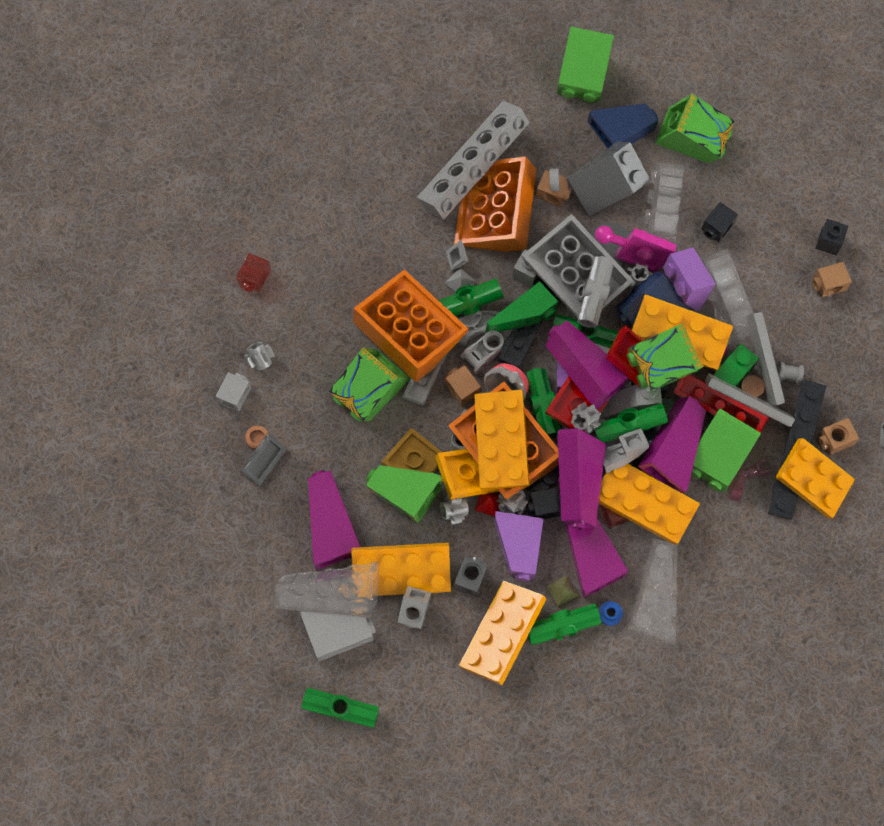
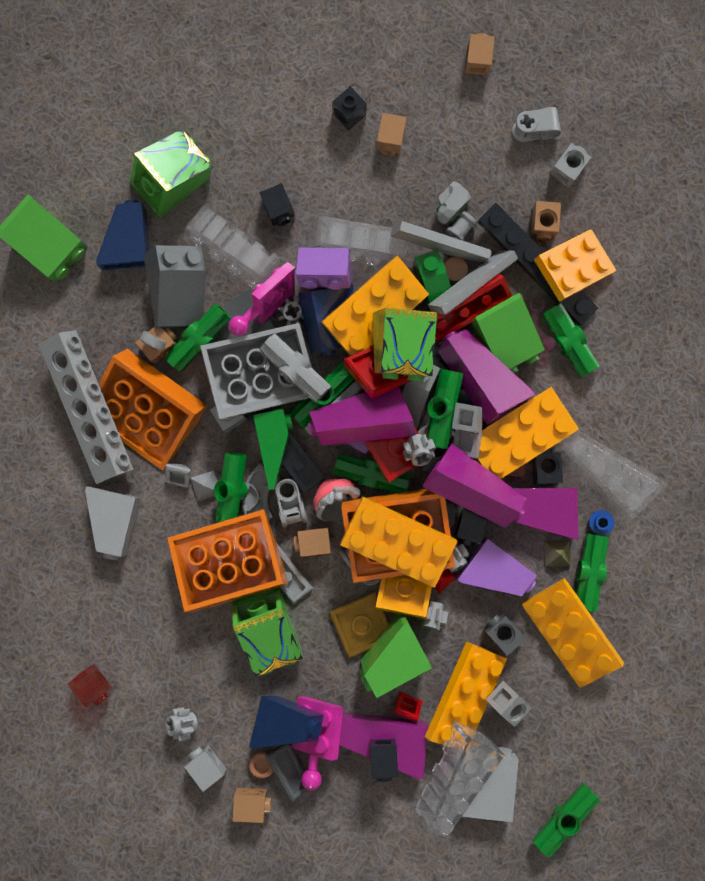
camera: 60 degrees left, 15 degrees up
(221, 442) = (251, 805): none -> medium nougat brick
(300, 432) = (284, 723): none -> dark blue slope
(300, 467) = (328, 741): none -> dark pink plate
(317, 520) = (383, 759): none -> black brick
(366, 528) = (408, 706): none -> red slope
(394, 224) = (111, 520): none -> light grey slope
(588, 217) = (196, 335): none -> green piece
(627, 551) = (554, 475): none -> black brick
(750, 508) = (571, 340): none -> green piece
(804, 354) = (451, 203): none -> light grey rock

